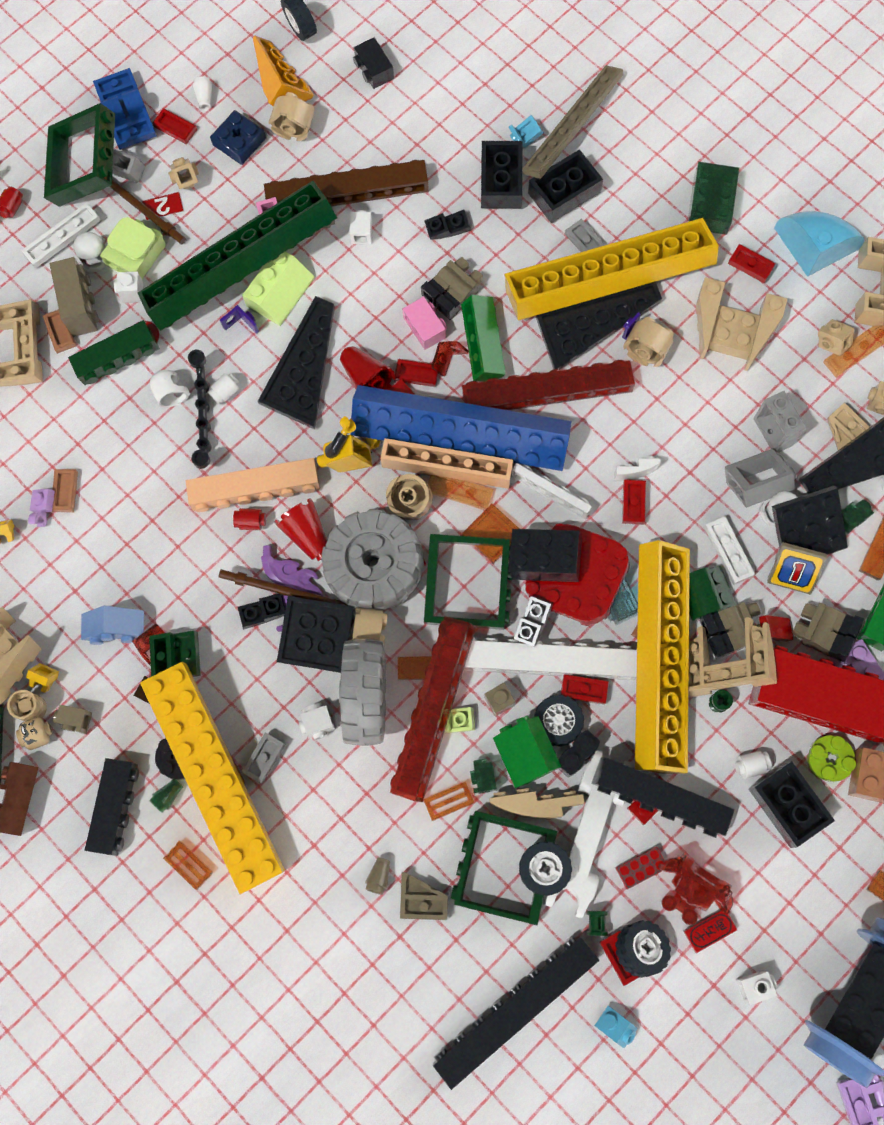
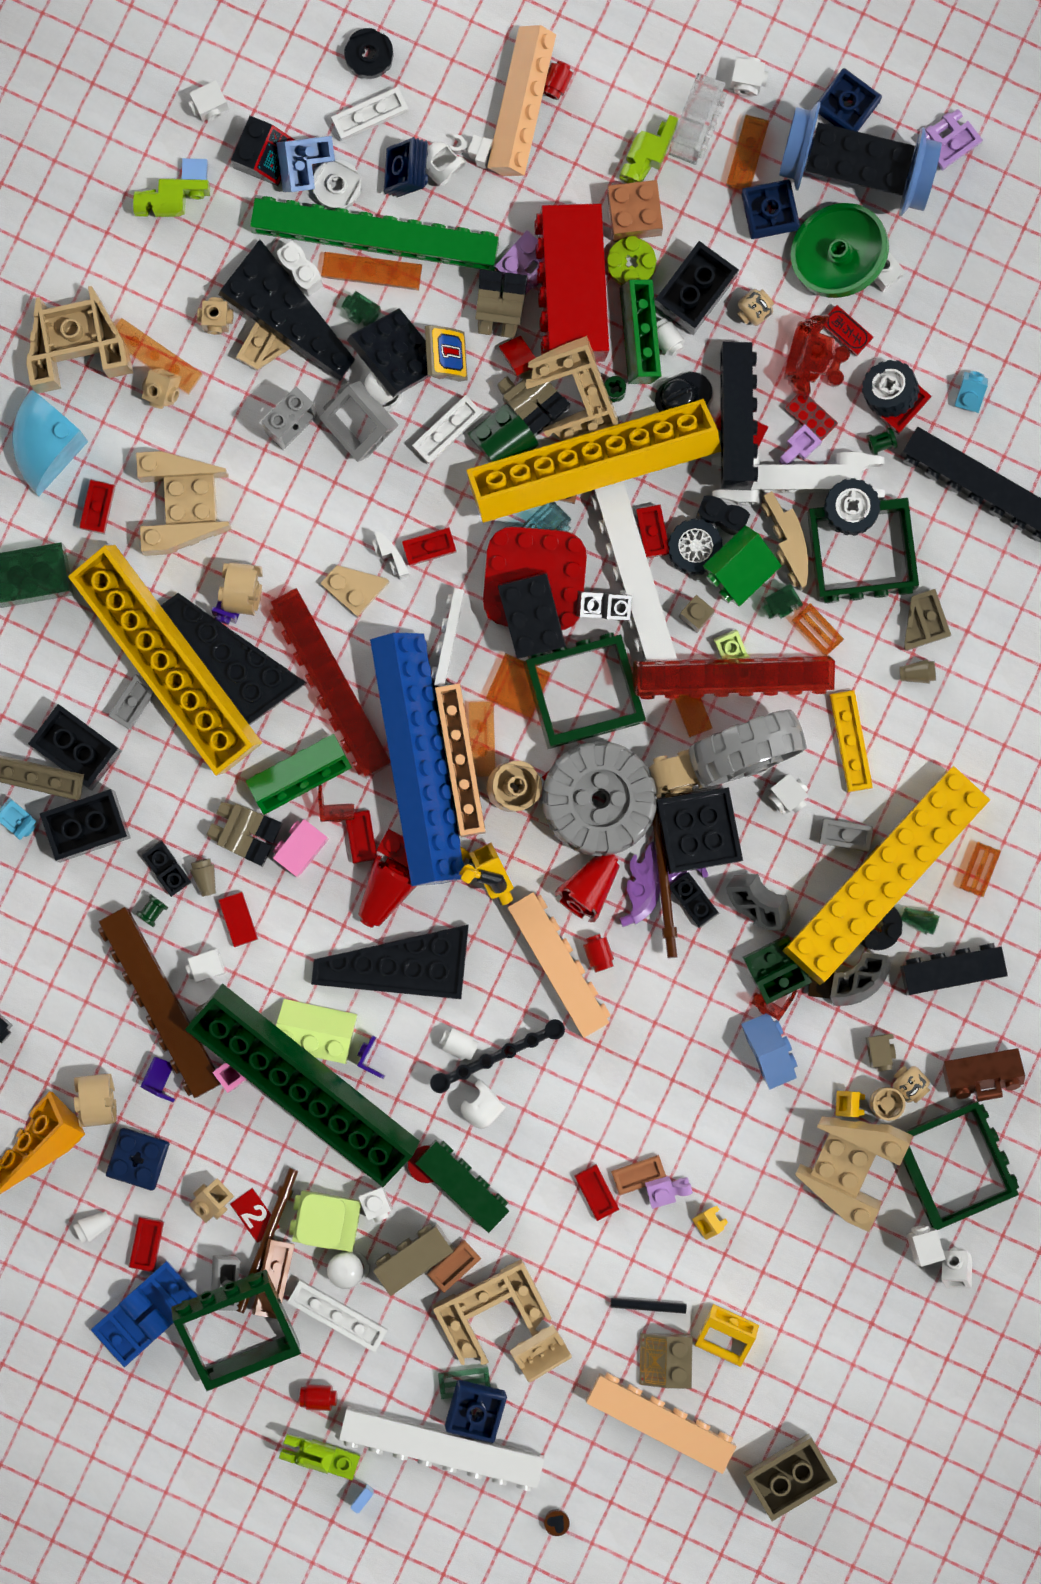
camera: 115 degrees left, 10 degrees up
(65, 454) = (596, 1192): none -> red tile
(114, 203) = (277, 1263): none -> plate
(135, 722) = (861, 981): none -> dark grey brick
(236, 660) = (758, 903): none -> dark grey brick
(289, 166) = (157, 1077): none -> dark purple bracket
(342, 794) = (851, 741): none -> yellow tile
(387, 263) = (238, 919): none -> red tile
(418, 203) = (152, 910): none -> dark green bush
(430, 248) = (204, 876): none -> dark tan cone
(618, 848) = (801, 444): none -> lavender plate
(619, 433) = (354, 588): none -> tan wing
(700, 763) = (683, 390): none -> black piece
(757, 852) = (755, 307): none -> tan head
(766, 740) = (640, 332): none -> green brick
(788, 951) = (839, 250): none -> green dish
(855, 913) = (779, 196): none -> dark blue brick

